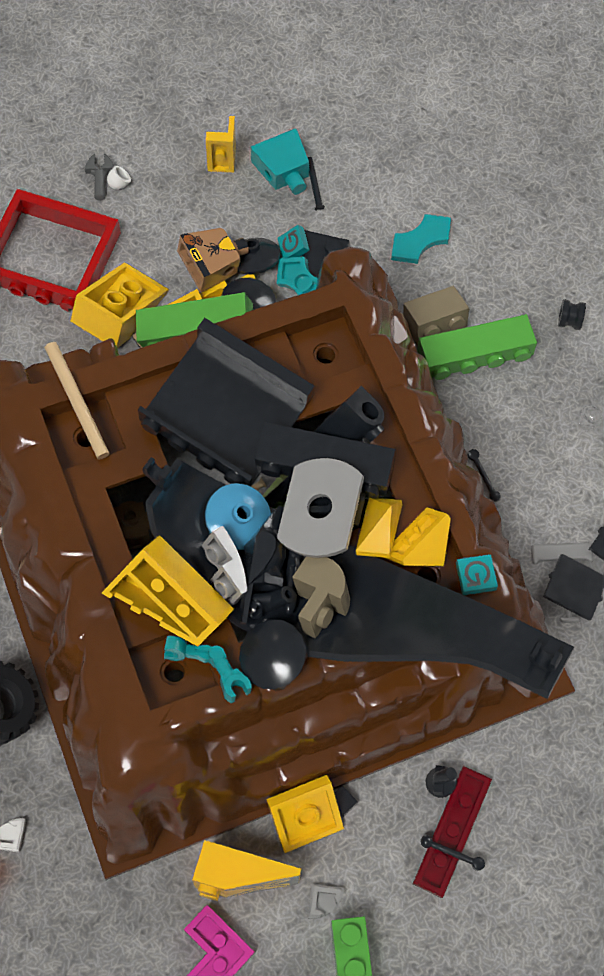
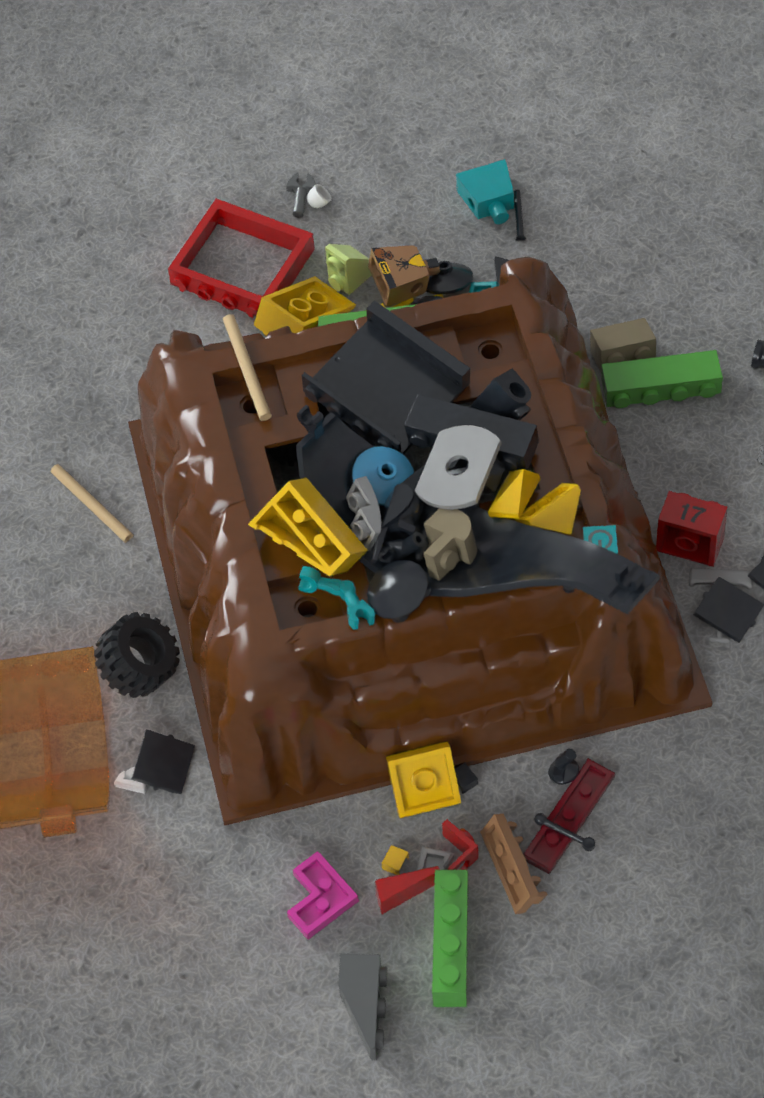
camera: 15 degrees right, 10 degrees down
(34, 817) = (163, 762): none -> black piece
(155, 253) = (346, 267): none -> yellowish green slope
(221, 149) = (426, 174): yellow panel -> none
(236, 873) = (354, 823): yellow slope -> none
(286, 902) = (394, 860): none -> yellow piece
(290, 940) = (399, 888): none -> red slope
(293, 242) = (487, 268): teal tile -> none
(353, 875) = (464, 842): none -> red bracket
(404, 895) = (511, 864): none -> medium nougat plate
(411, 245) = (631, 269): teal tile -> none
(473, 455) = (644, 481): black hinge -> none
(533, 507) = (691, 528): none -> red brick

